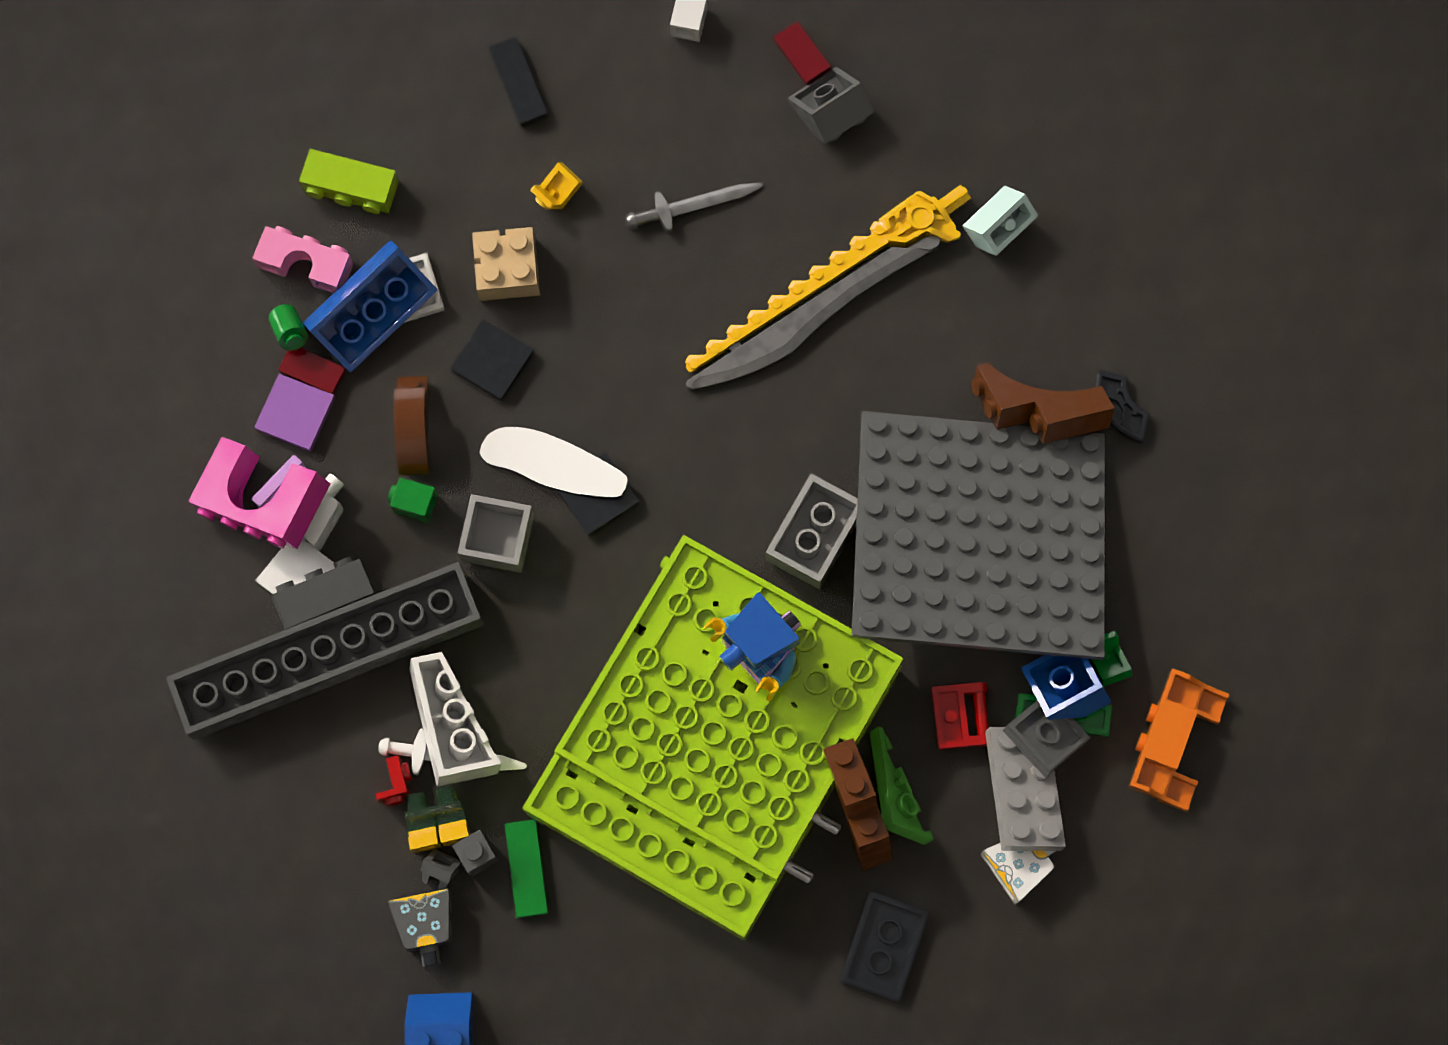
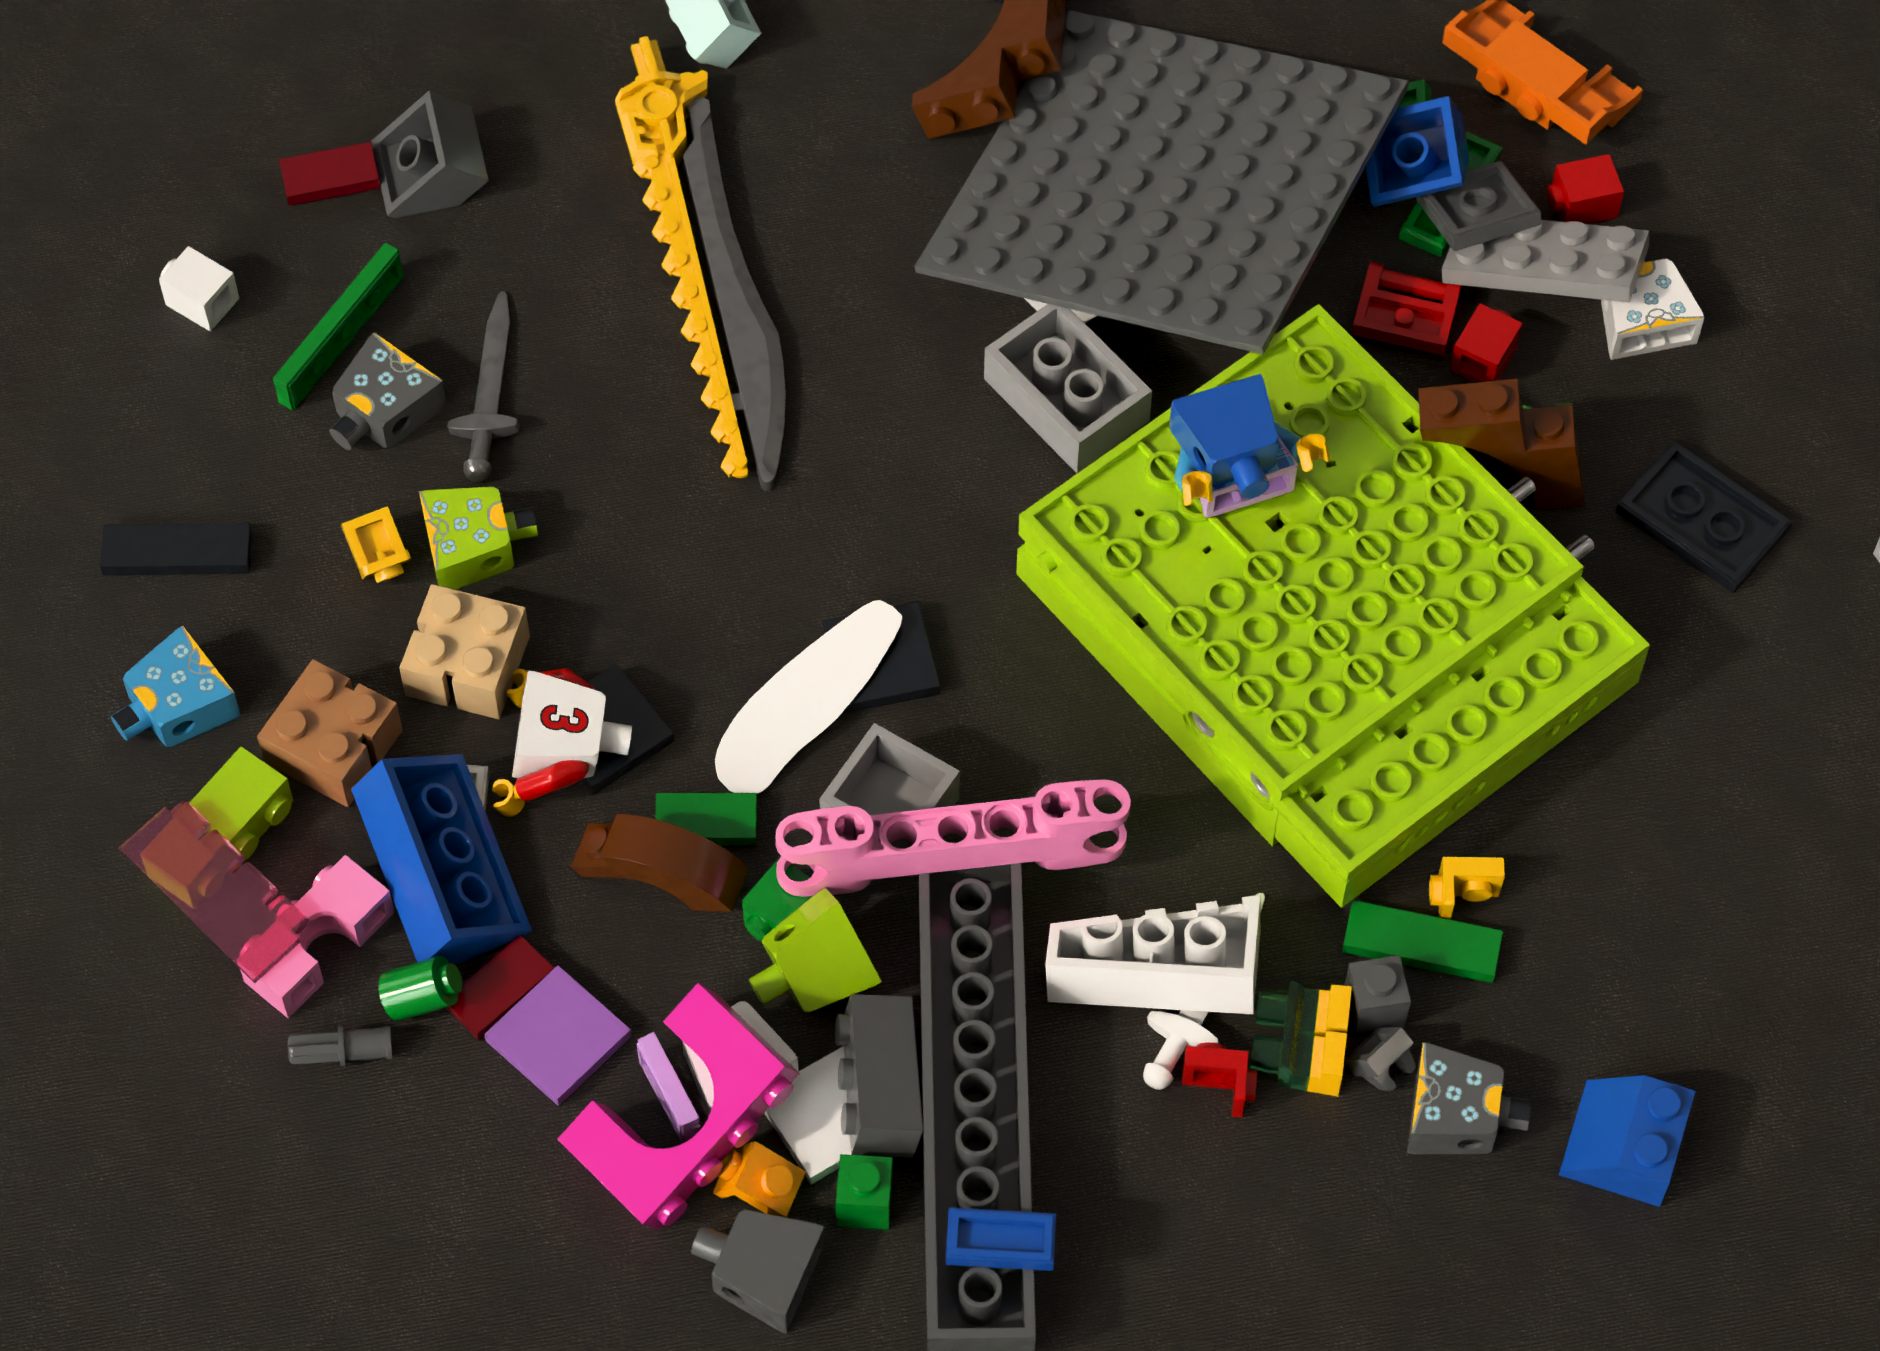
camera: 75 degrees left, 15 degrees down
(193, 574) = (762, 1263): none -> dark grey torso
(234, 694) = (1000, 1239): none -> blue tile
(243, 555) = (759, 1178): none -> light orange bracket
(245, 302) = (340, 1045): none -> dark grey axle
(253, 612) = (864, 1192): none -> green brick
(295, 199) = (202, 885): none -> clear pink windscreen
(380, 531) = (814, 957): none -> lime torso
(423, 121) = (175, 693): none -> dark azure torso
(426, 209) = (321, 729): none -> medium nougat piece
(429, 510) = (856, 847): none -> bright pink piece
(456, 438) = (719, 817): none -> green tile
(468, 335) = (556, 735): none -> white torso
(572, 885) = (1468, 877): none -> yellow bracket
(584, 235) = (472, 533): none -> lime torso
(657, 148) = (384, 396): none -> dark grey torso
(694, 104) = (338, 327): none -> green tile
(951, 773) = (1485, 345): none -> red brick
(1092, 798) = (1586, 190): none -> red brick

